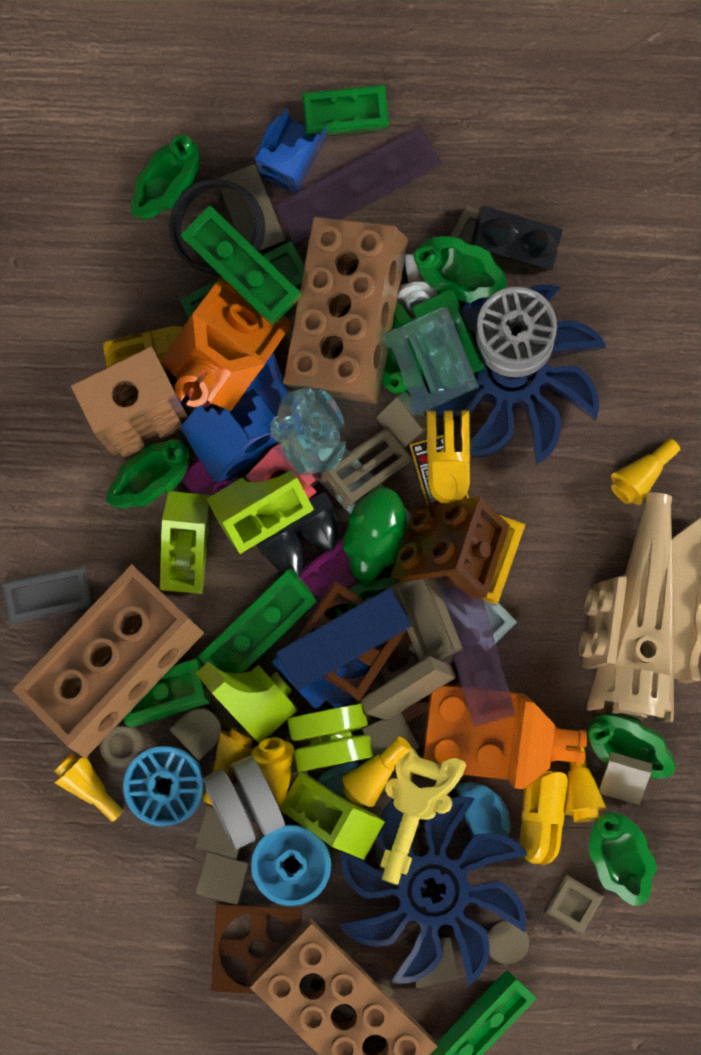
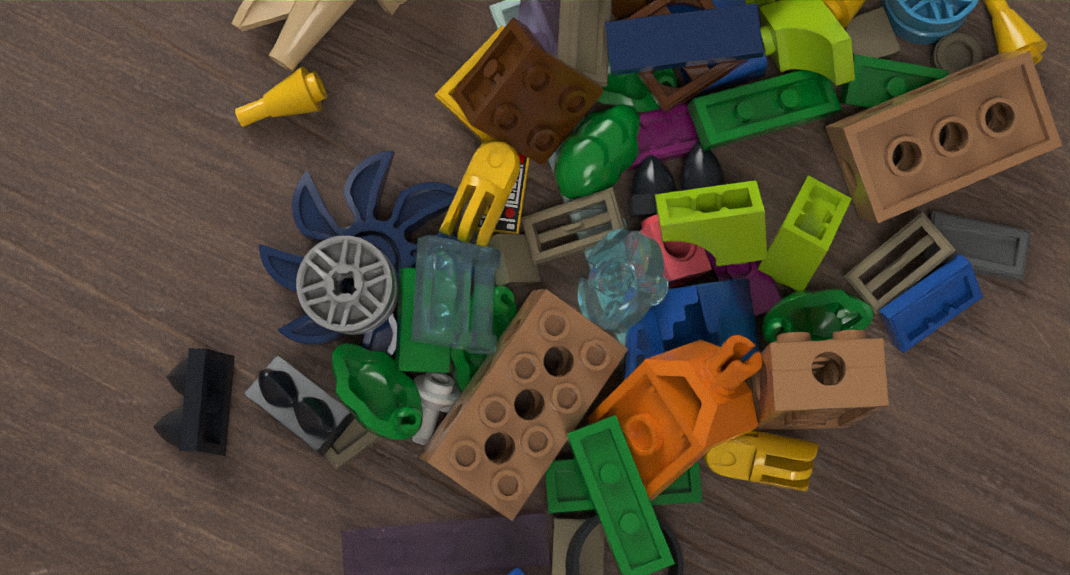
camera: 160 degrees left, 5 degrees down
(64, 529) = (931, 303): none -> blue plate
(85, 581) = (933, 235): none -> dark tan tile
(584, 197) = (204, 418): none -> black tile

